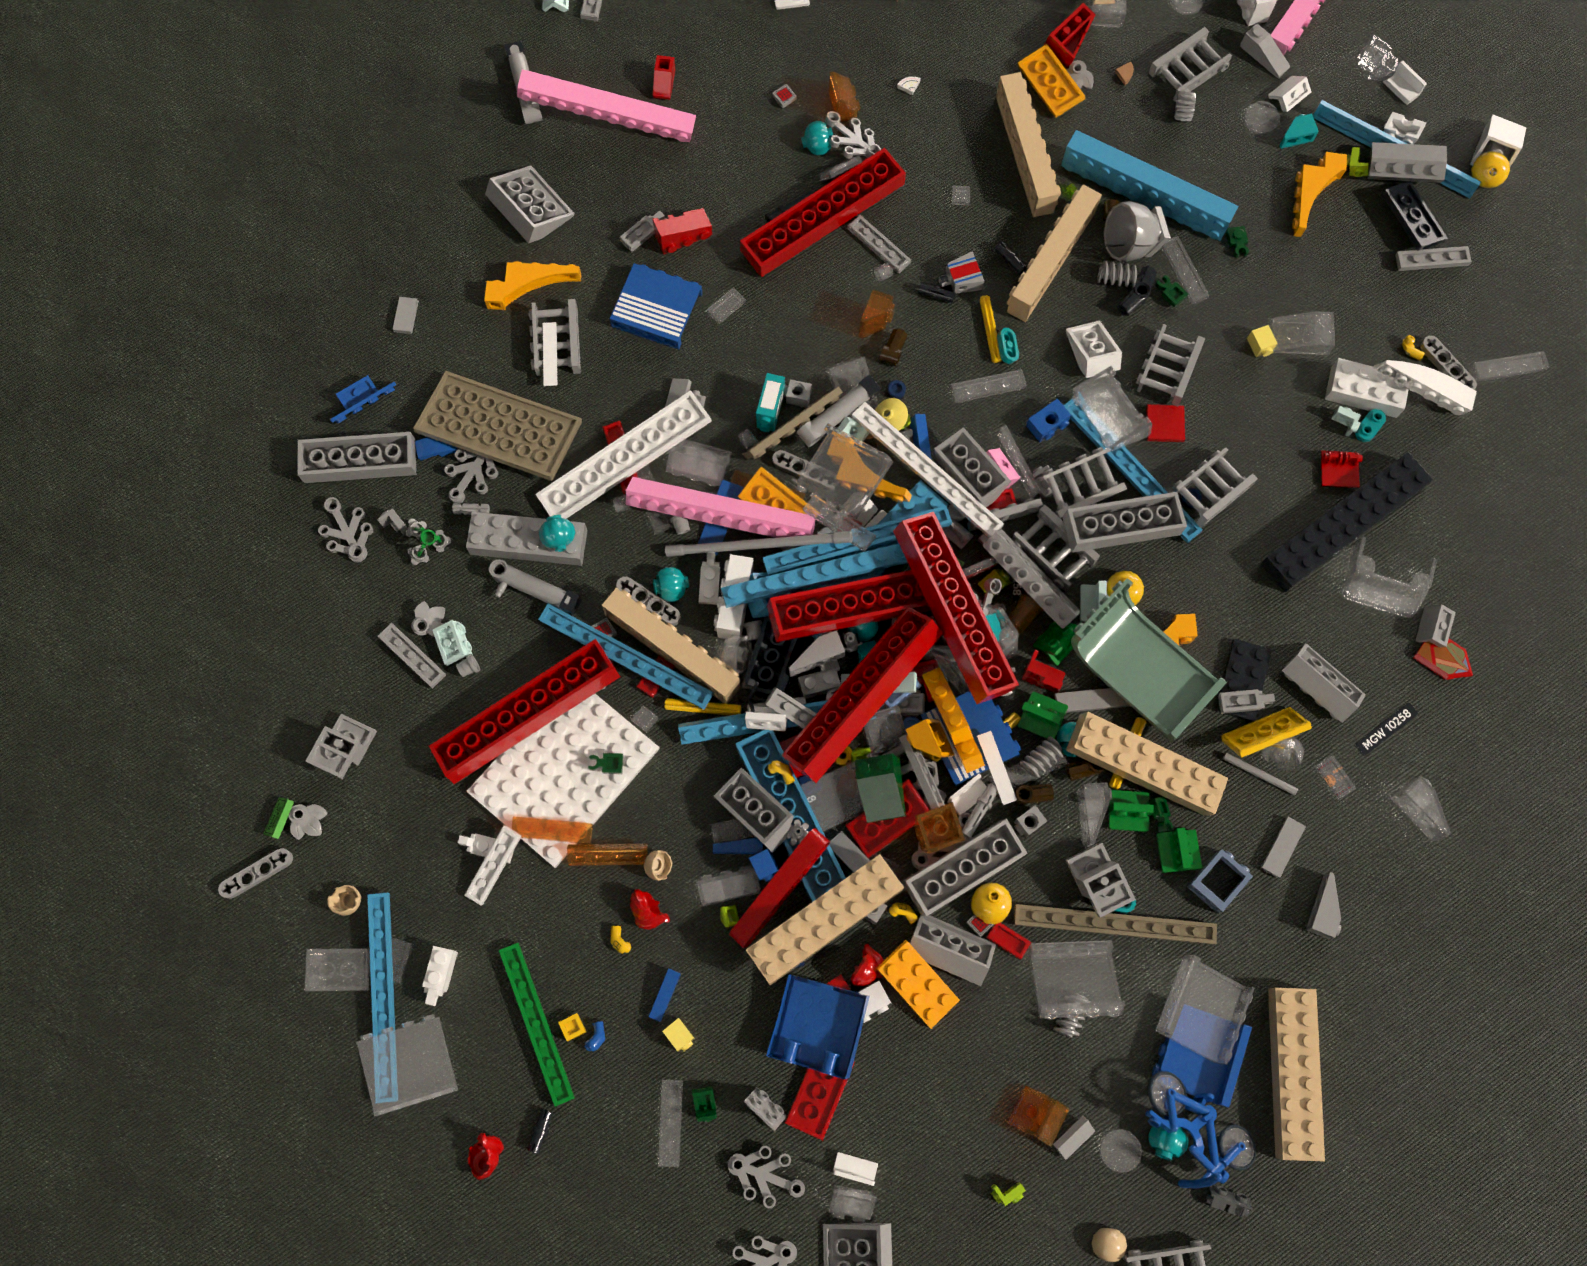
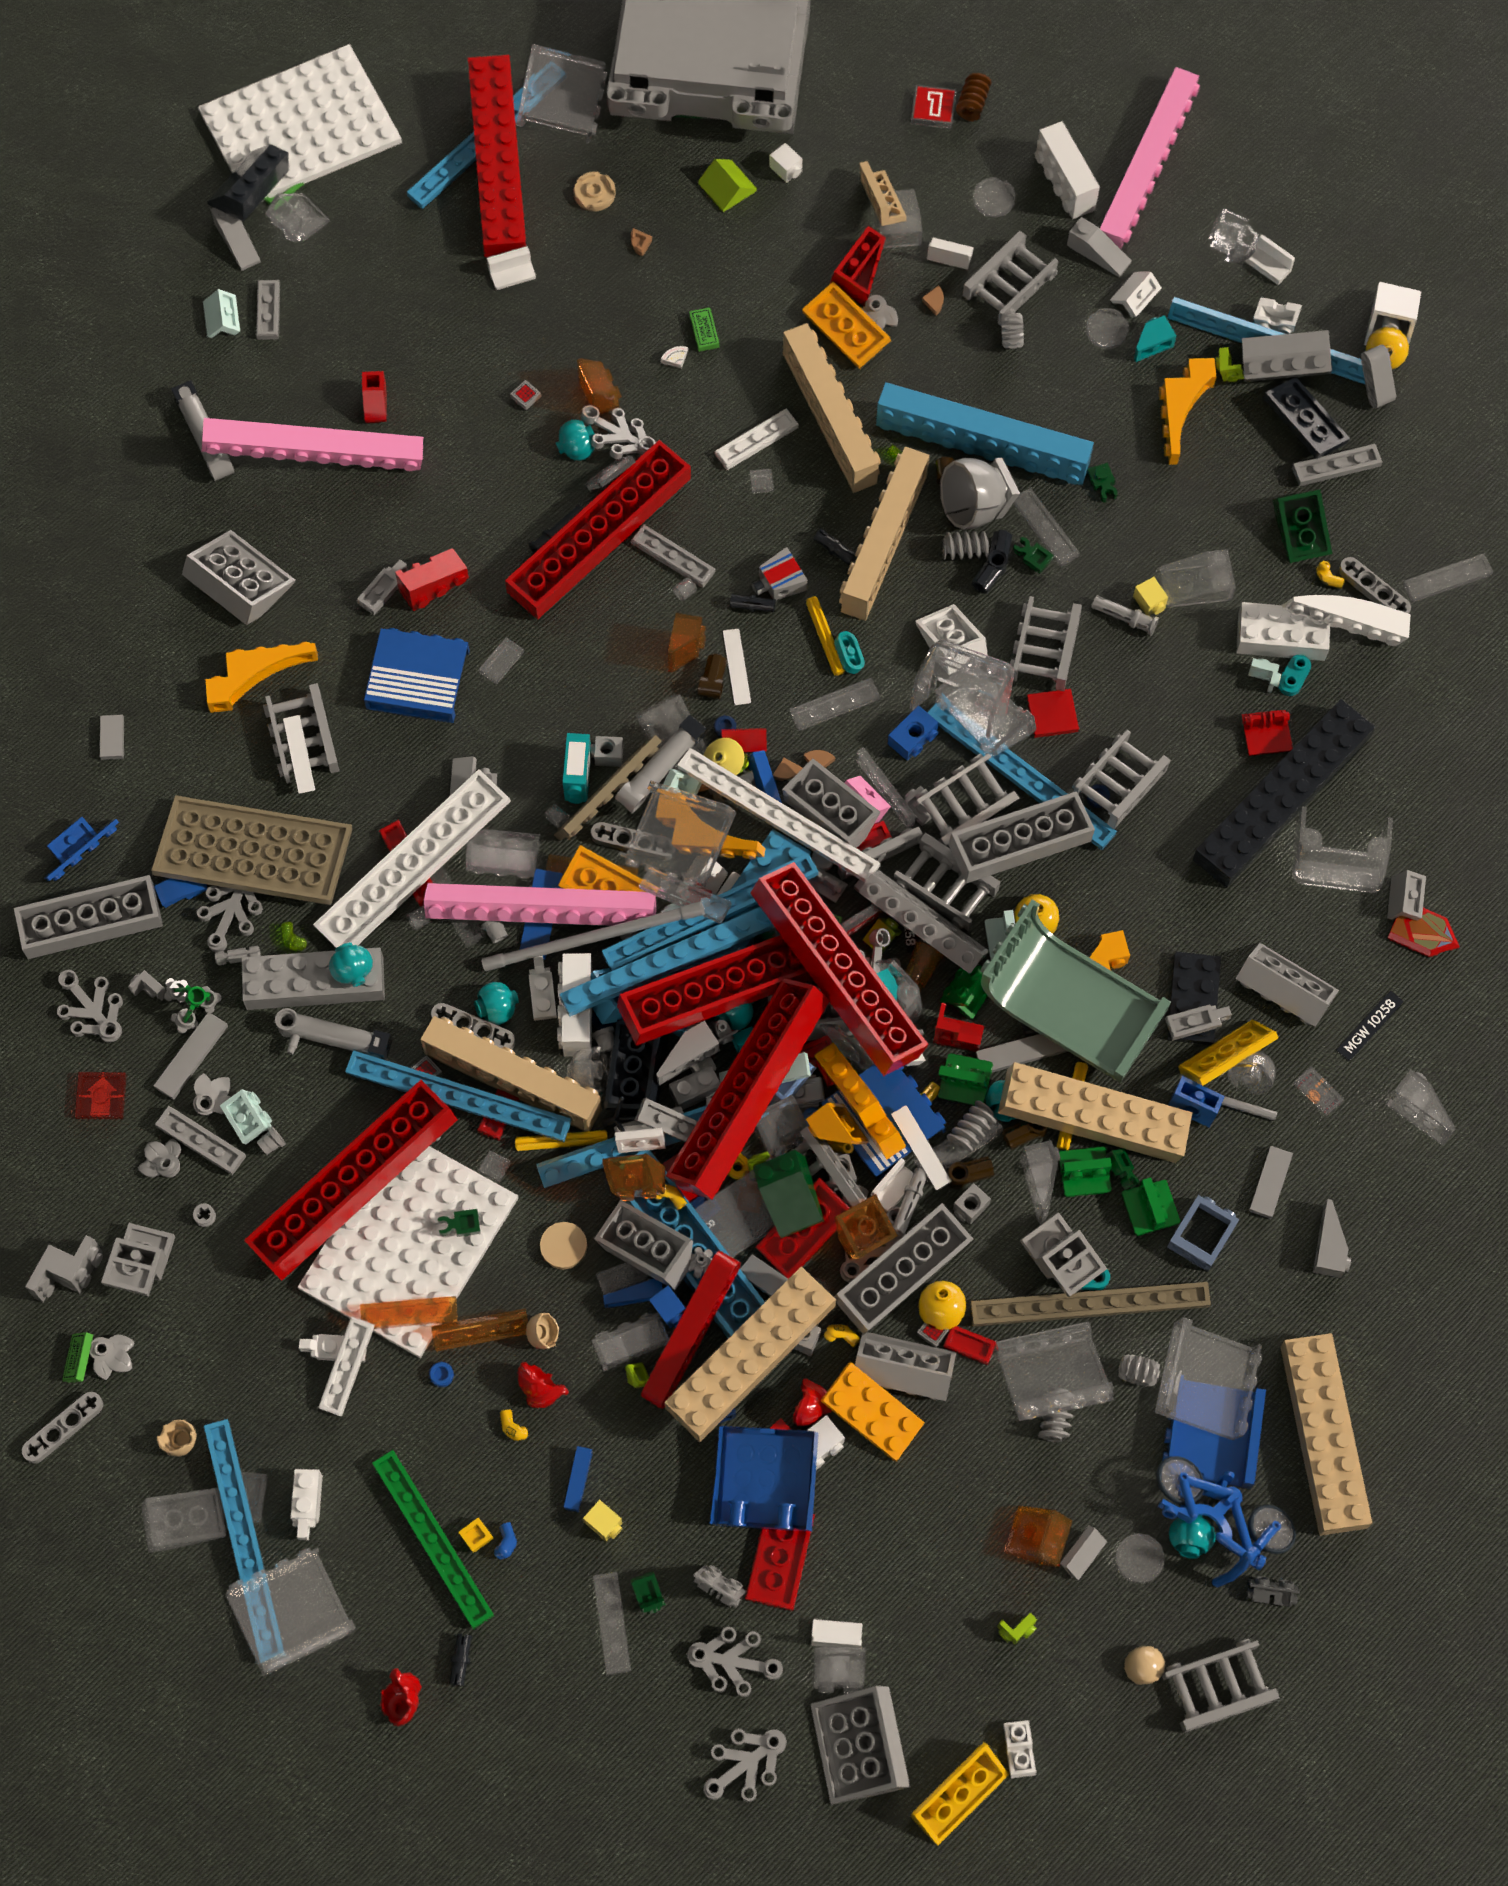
camera: 10 degrees left, 5 degrees down
(286, 746) = (64, 1269): none -> light grey bracket
(340, 604) = (100, 1095): none -> clear red tile
(376, 663) = (158, 1157): none -> light grey plate
(406, 712) = (202, 1222): none -> light grey bush
(418, 584) = (190, 1055): none -> light grey tile
(515, 503) = (290, 939): none -> clear neon green arm
(569, 885) = (441, 1374): none -> blue tile
(688, 795) = (563, 1245): none -> tan tile
(755, 752) = (635, 1176): none -> clear orange slope
(914, 341) = (737, 666): none -> white sticker
(915, 403) = (749, 739): none -> red tile
(936, 66) = (704, 329): none -> bright green tile
(940, 433) = (786, 770): none -> medium nougat tile
(962, 161) = (756, 439): none -> white tile
(970, 427) = (822, 757): none -> medium nougat tile
(1105, 377) = (969, 671): none -> clear windscreen
(1144, 37) = (949, 253): none -> white panel
(1147, 990) = (1139, 1370): none -> light grey gear
(1233, 767) = (1197, 1099): none -> blue brick
(1245, 356) = (1134, 618): none -> light grey pin
(1397, 303) = (1303, 525): none -> dark green slope
(1481, 190) = (1378, 376): none -> light grey beam

